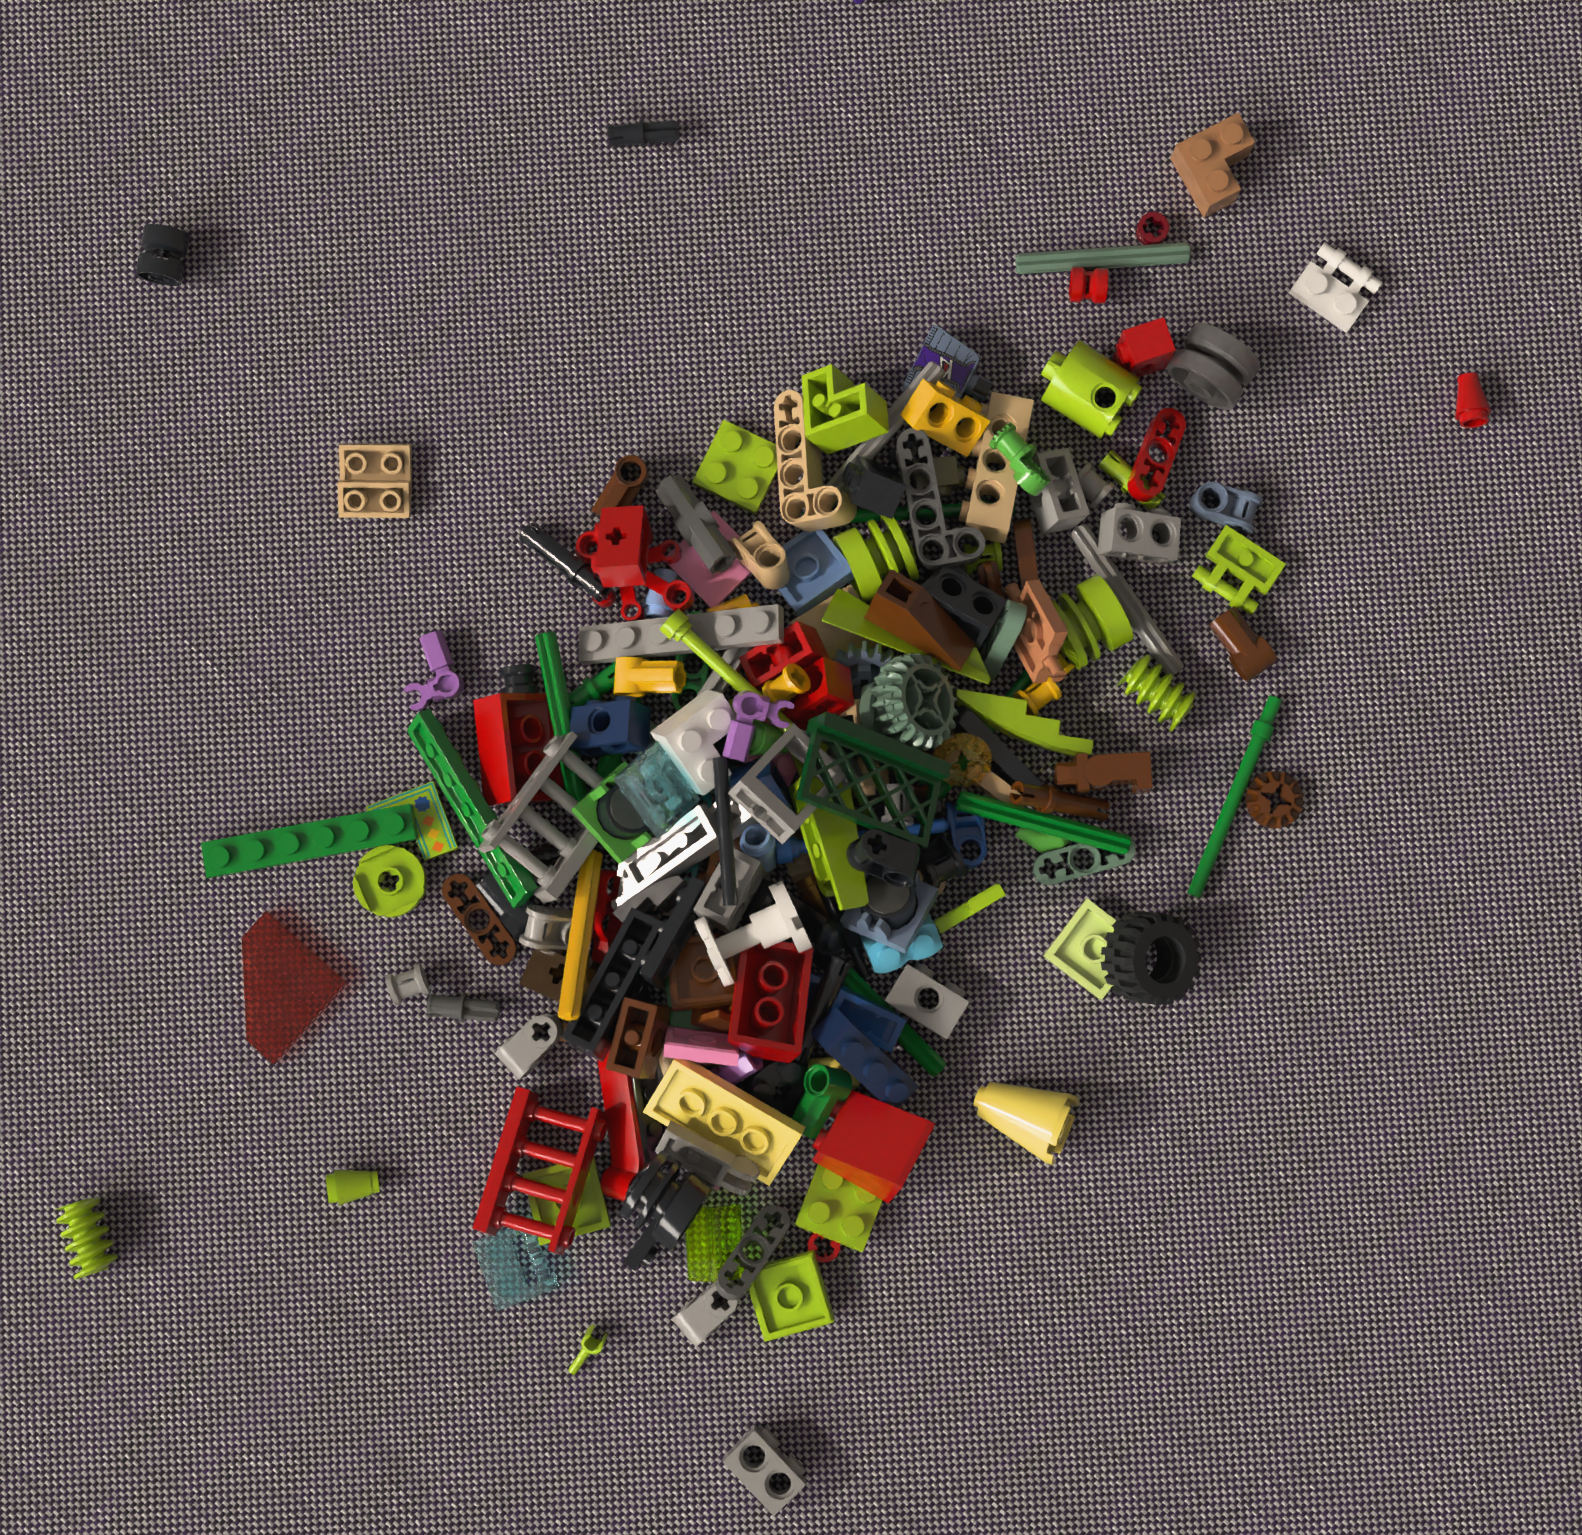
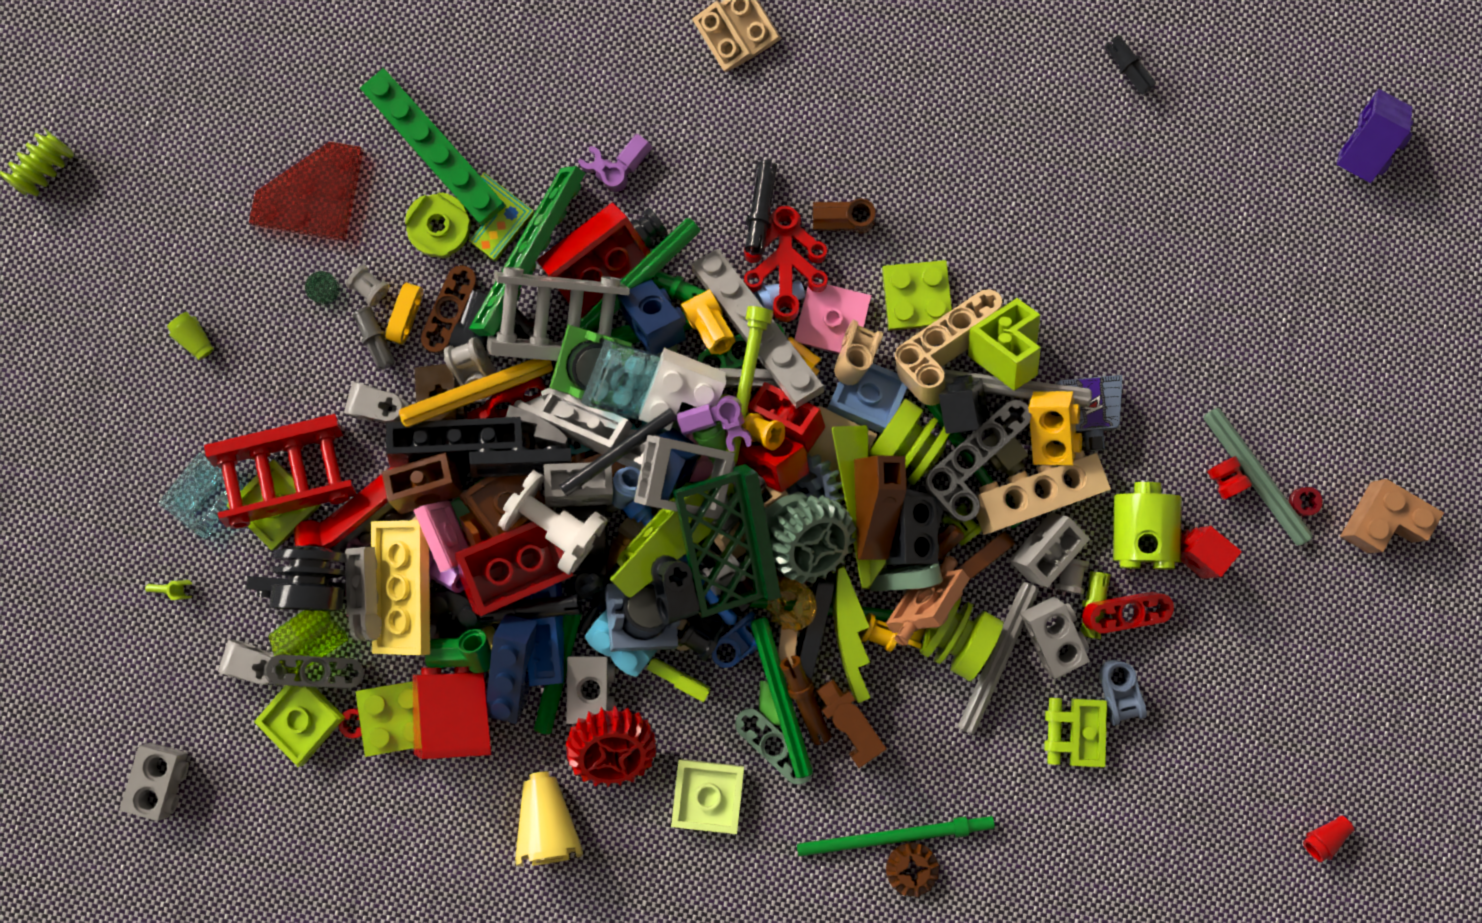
camera: 55 degrees right, 0 degrees up
(381, 1030) = (322, 287): none -> clear green tile
(457, 964) = (404, 313): none -> yellow beam
(622, 546) = (797, 240): red brick -> none
(696, 524) = (851, 287): dark grey piece -> none
(994, 1009) = (611, 746): none -> red gear
(1019, 454) = (1061, 500): bright green connector -> none
(1158, 691) = (940, 726): lime piece -> none
(1174, 963) = (732, 868): black tyre -> none
(1213, 366) = (1227, 615): flat silver wheel -> none
(1247, 652) = (1017, 779): reddish brown piece -> none
(1329, 295) = (1341, 674): white plate -> none

